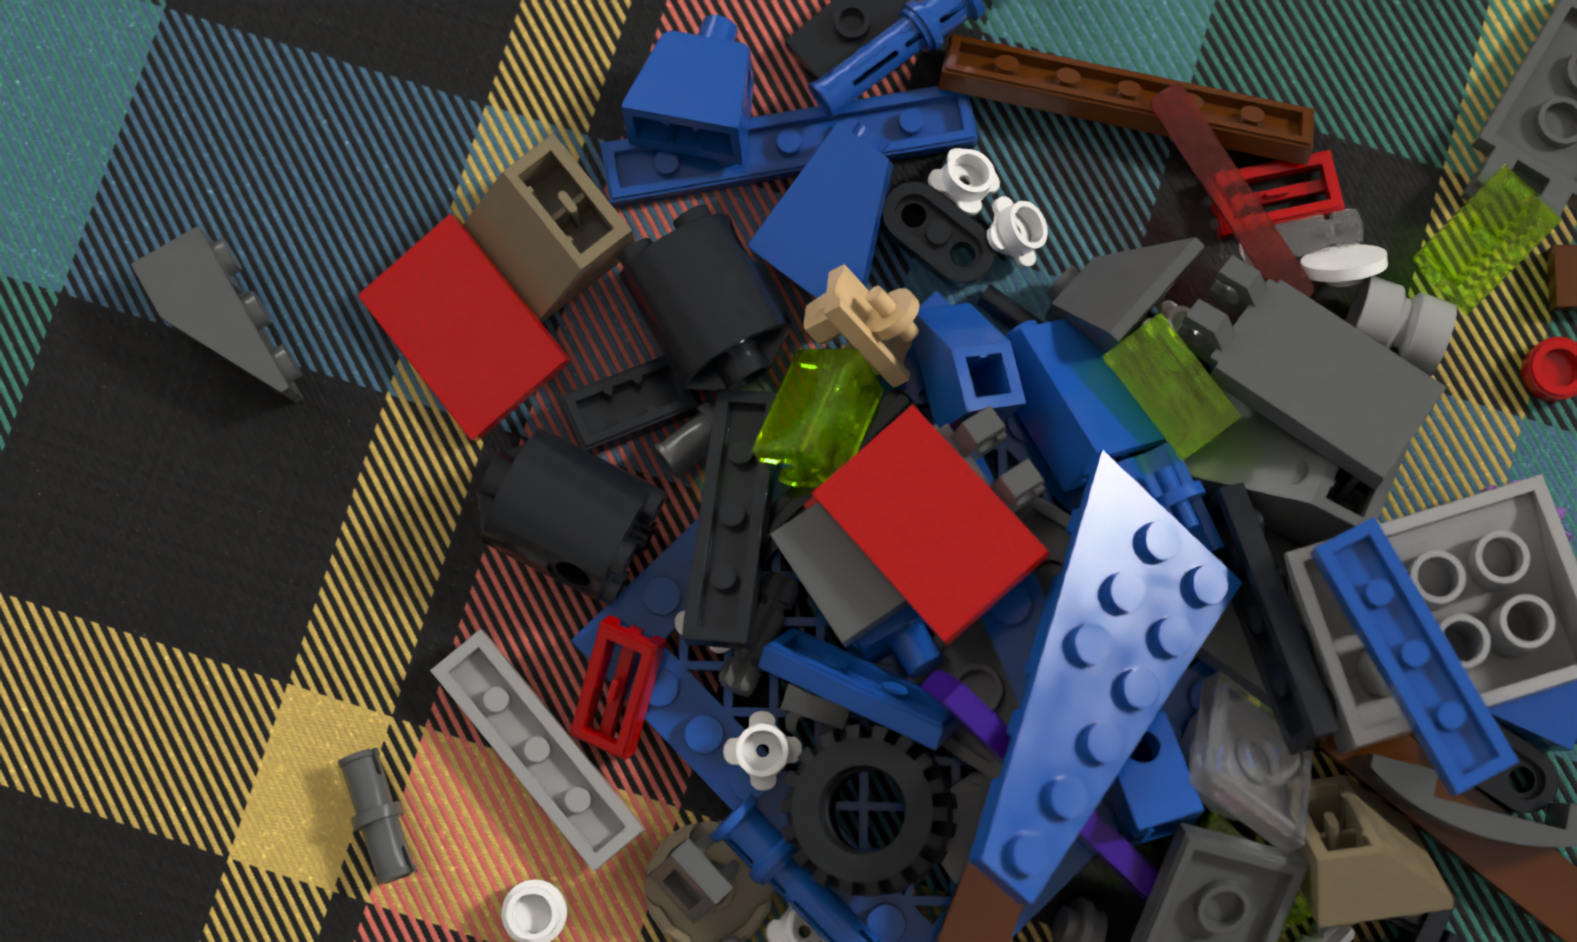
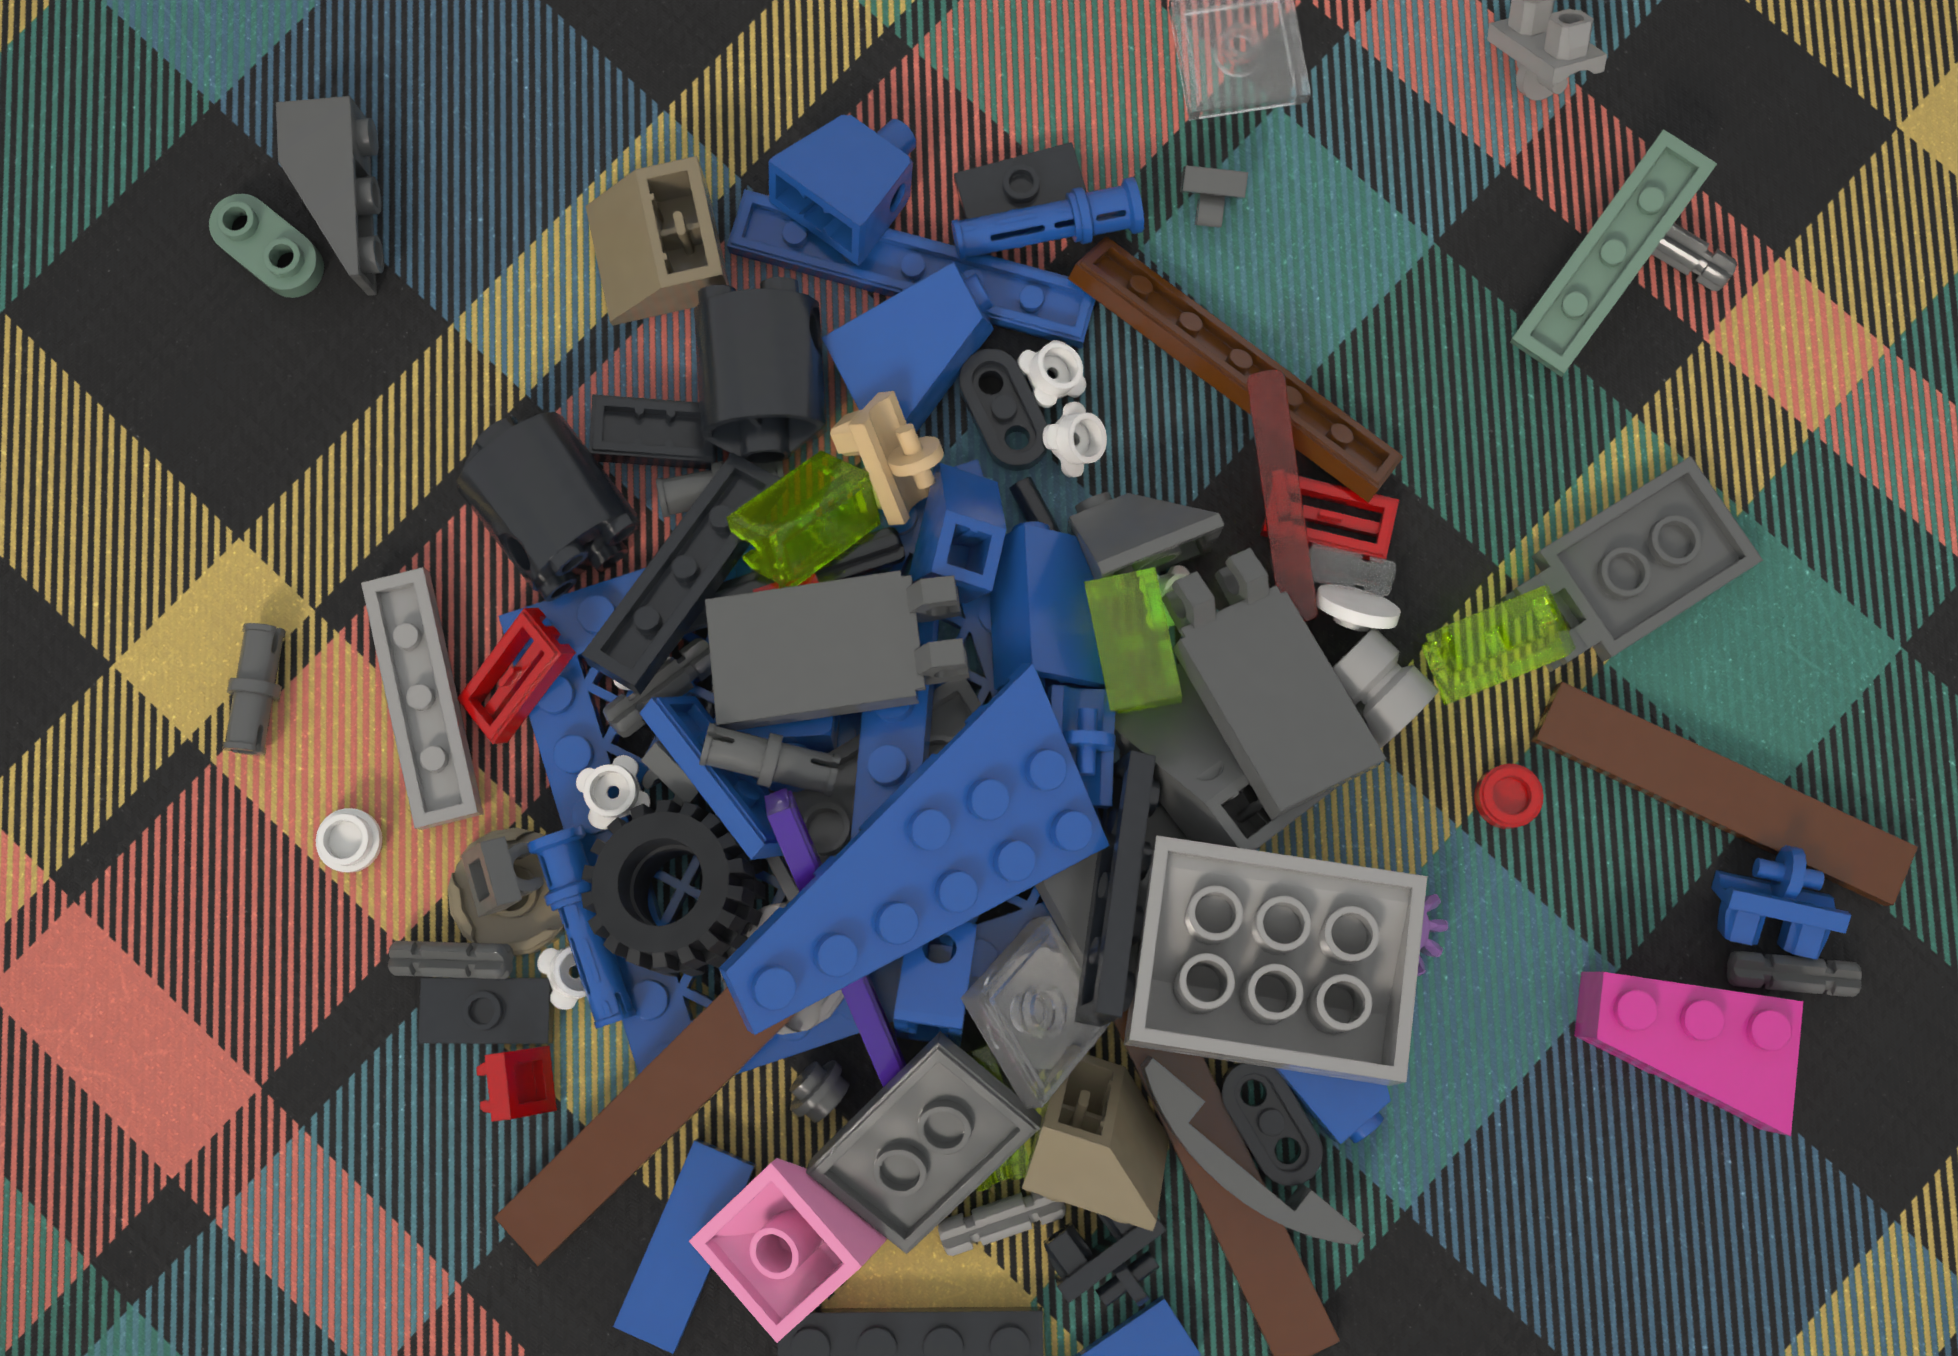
camera: 25 degrees right, 0 degrees up
(176, 401) = (263, 243): none -> sand green plate
(464, 328) = (542, 296): red tile -> none
(899, 653) = (770, 759): none -> dark grey pin
(930, 524) = (844, 656): red tile -> none
(1413, 657) = (1218, 982): blue plate -> none

